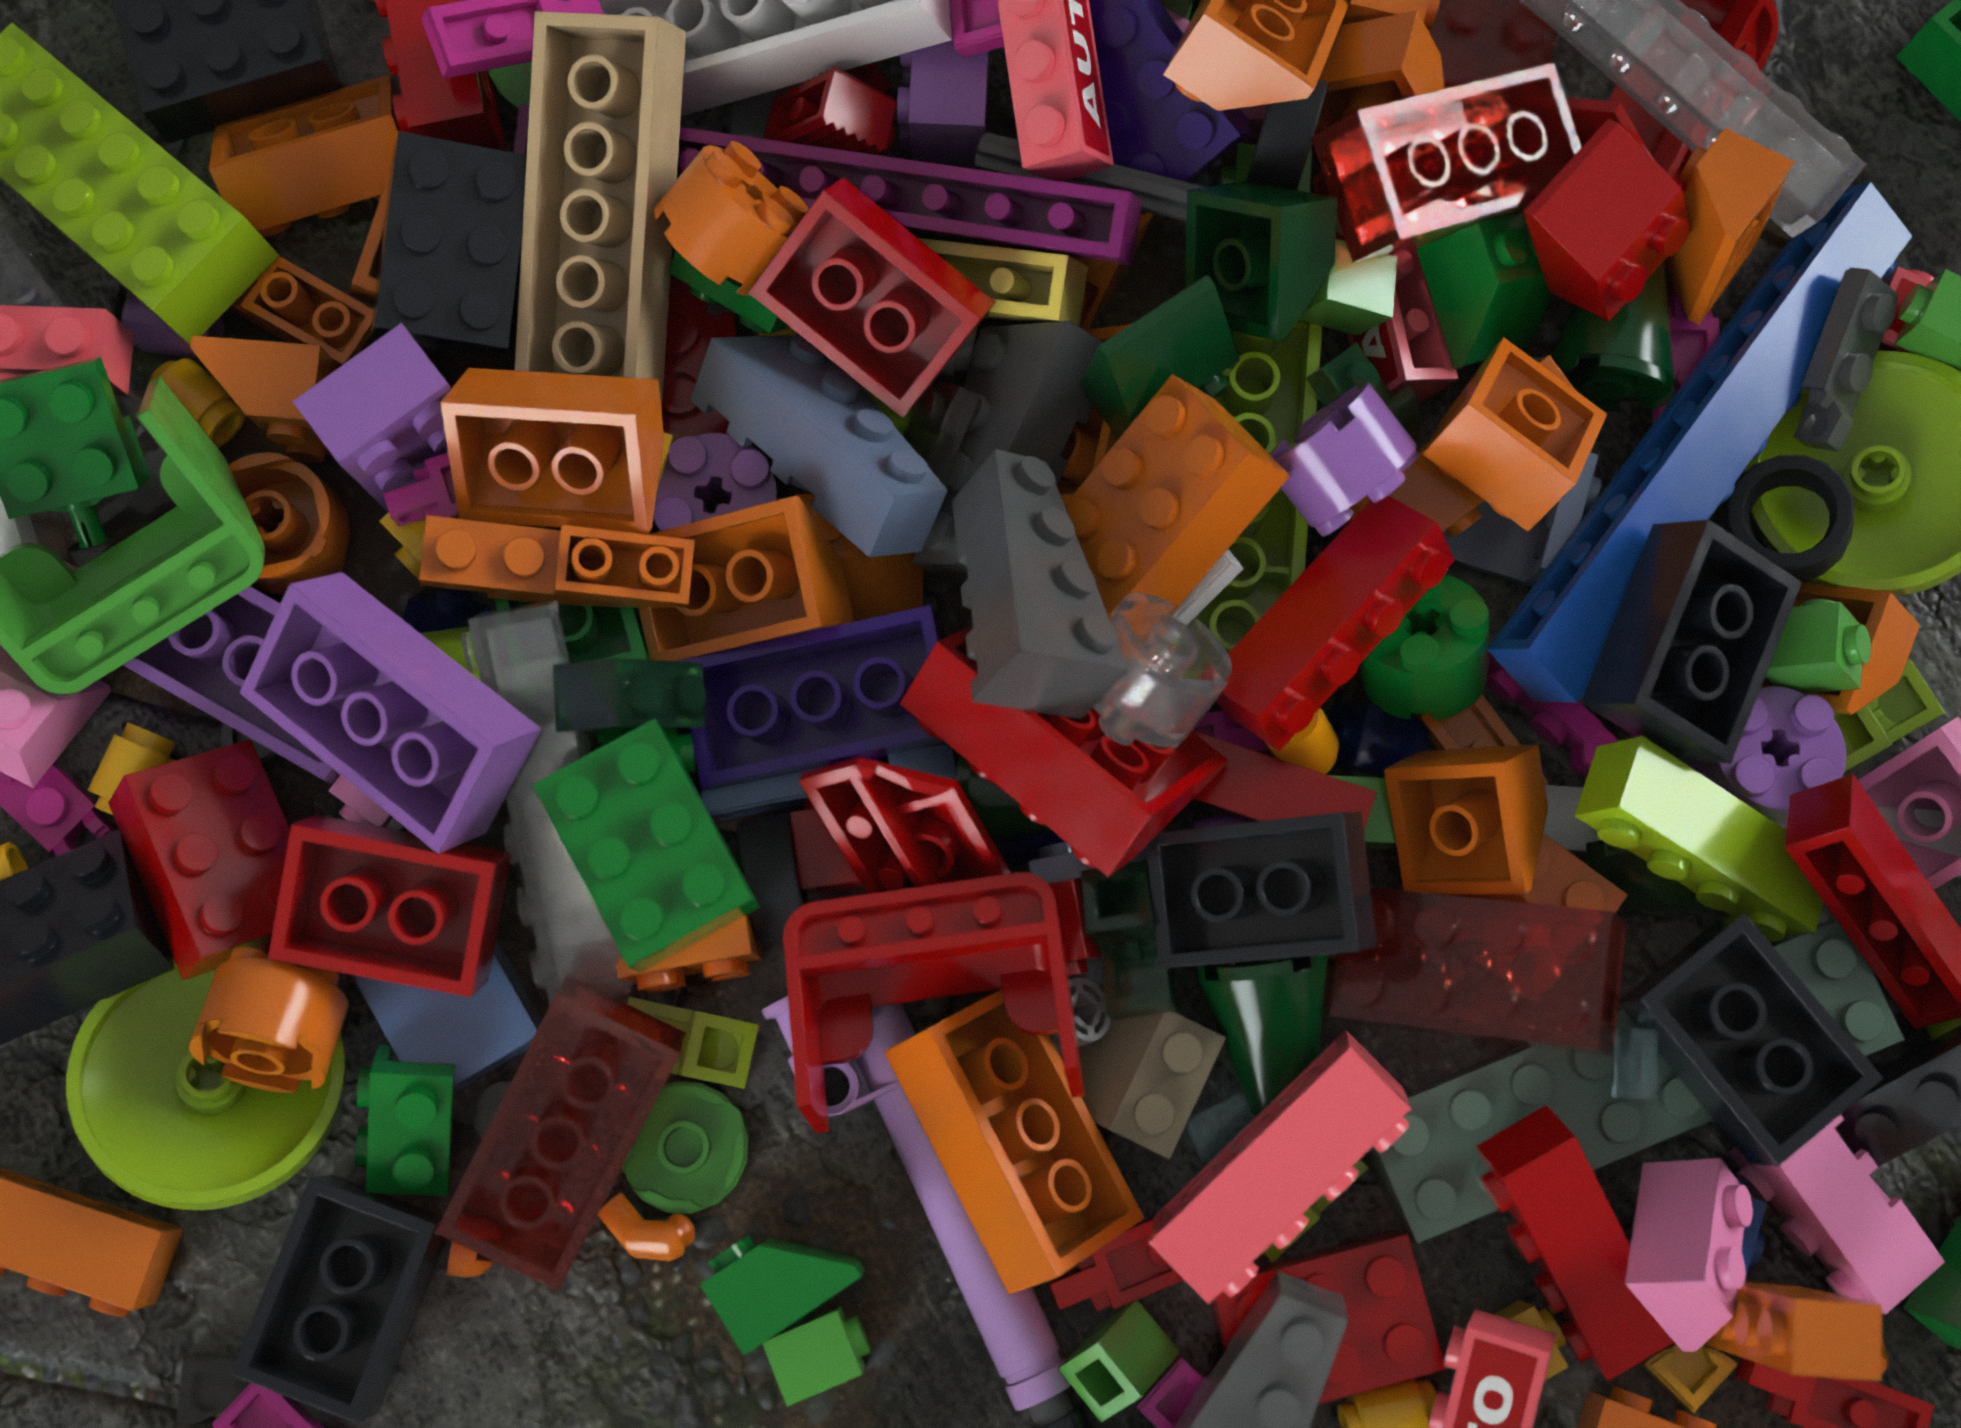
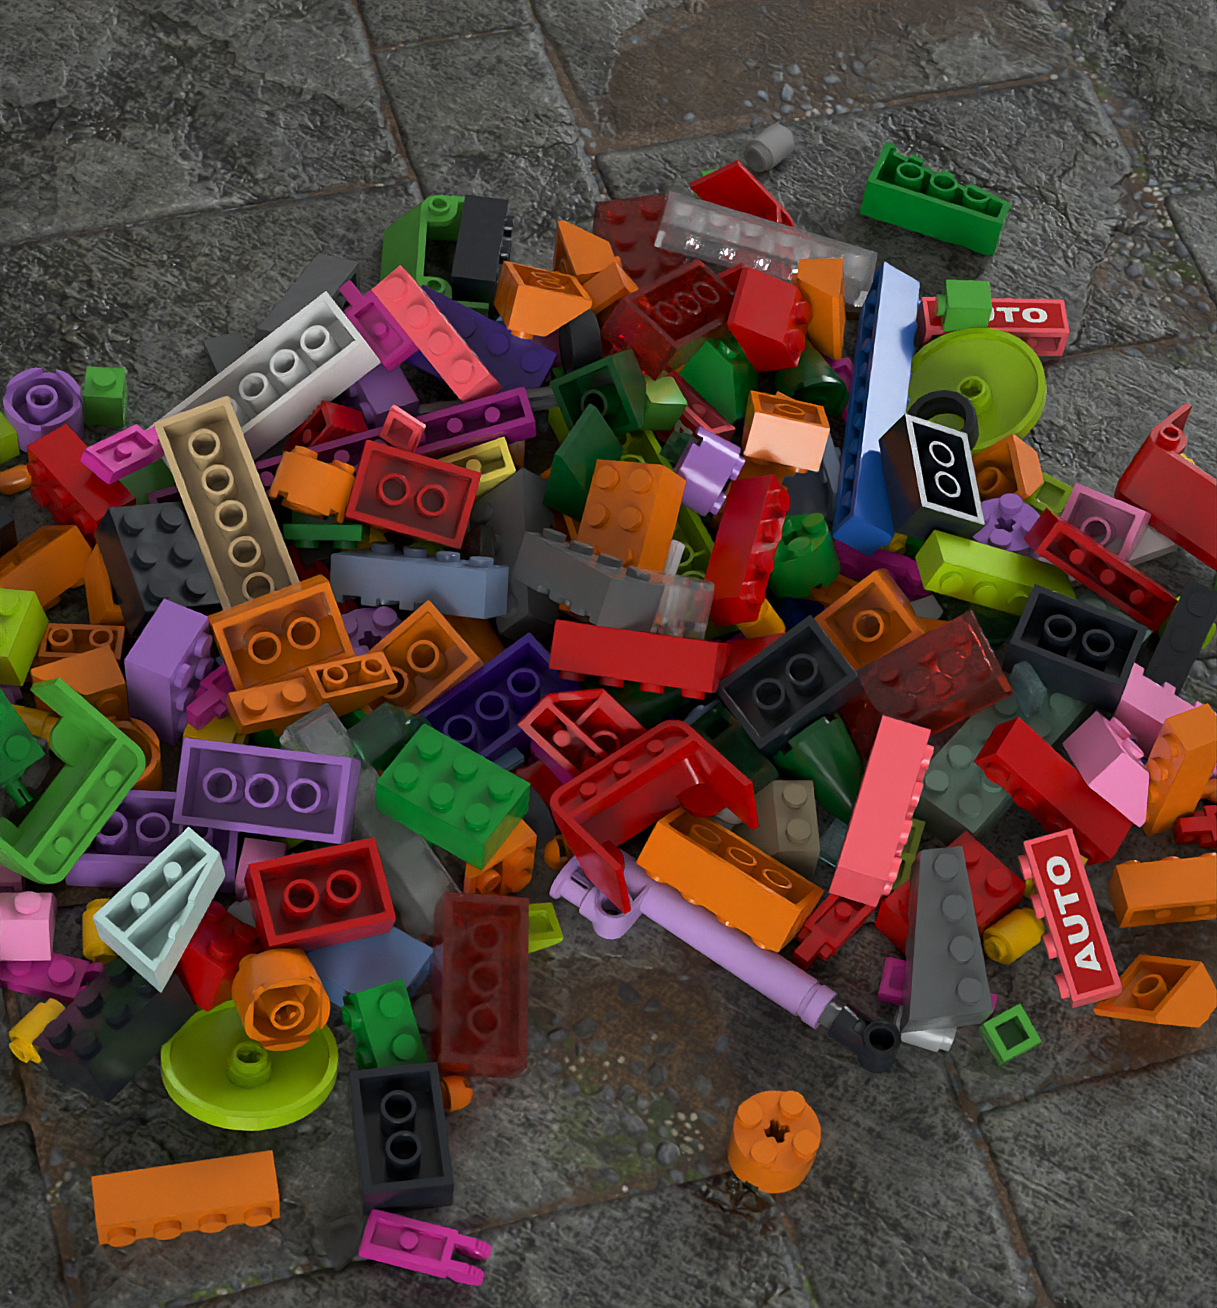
camera: 35 degrees left, 25 degrees down
(134, 840) = (162, 907): none -> light aqua wedge
(643, 1237) = (556, 1038): orange arm -> none
(689, 1149) = (554, 987): bright green tile -> none
(774, 1285) = (645, 1011): green slope -> none
(817, 1354) = (687, 1049): bright green brick -> none
(910, 182) = (402, 430): none -> coral slope
(1119, 1361) = (854, 968): bright green brick -> none
(1689, 1375) = (1149, 847): yellow tile -> none
(1820, 649) = (996, 471): bright green brick -> none
(1844, 358) = (922, 343): dark grey hinge -> none

